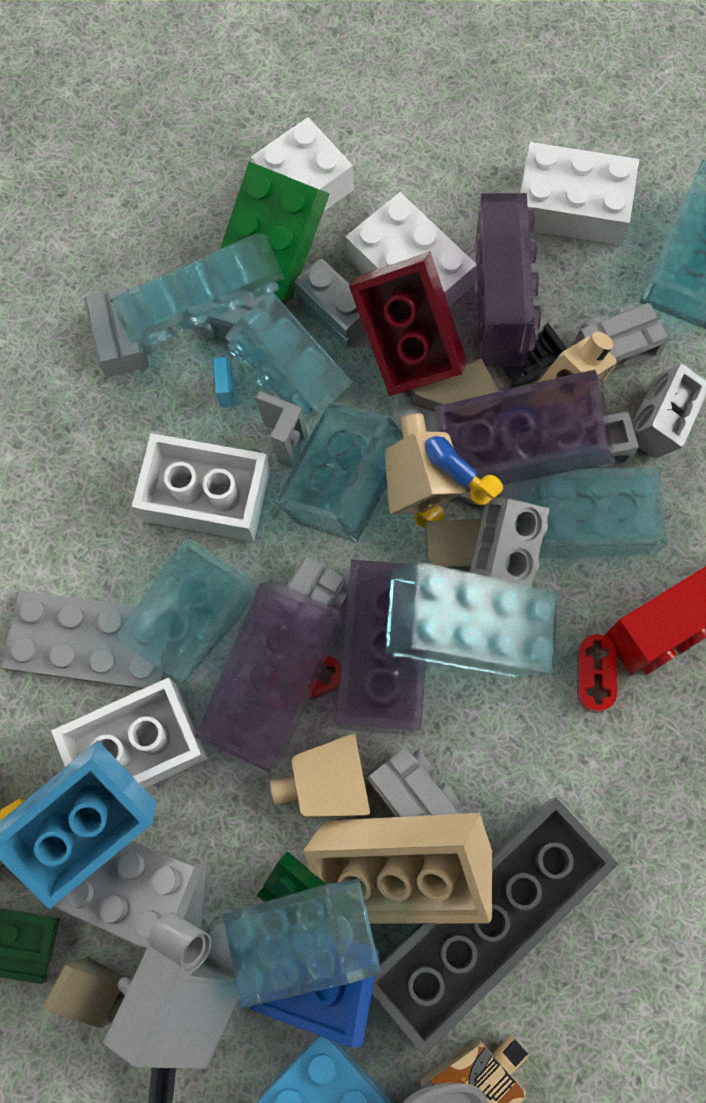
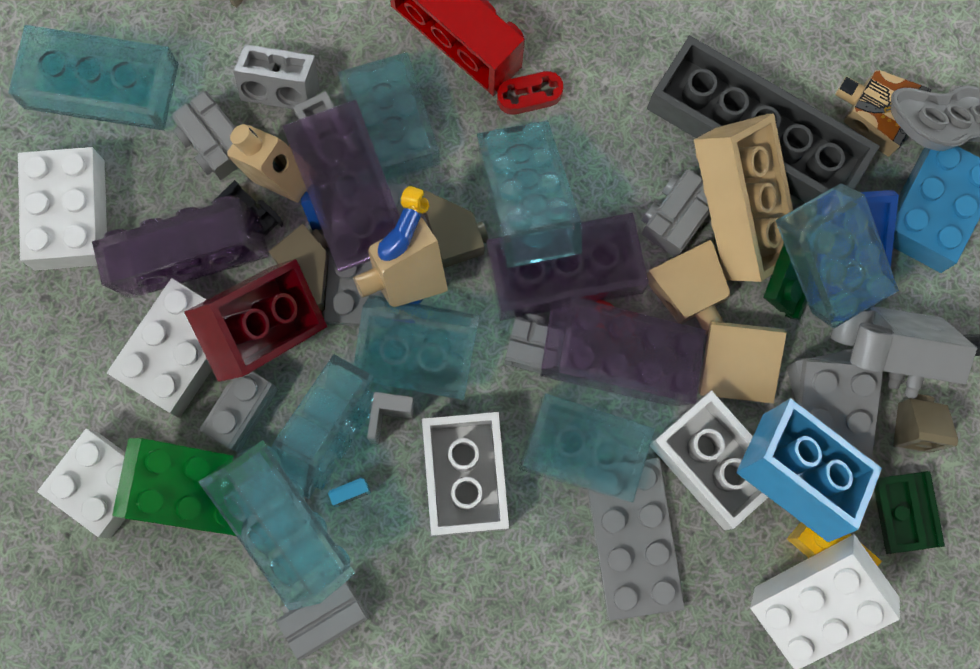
camera: 115 degrees left, 5 degrees up
(227, 809) = (742, 361): none -> tan tile
(501, 539) = (447, 179): light grey brick -> none

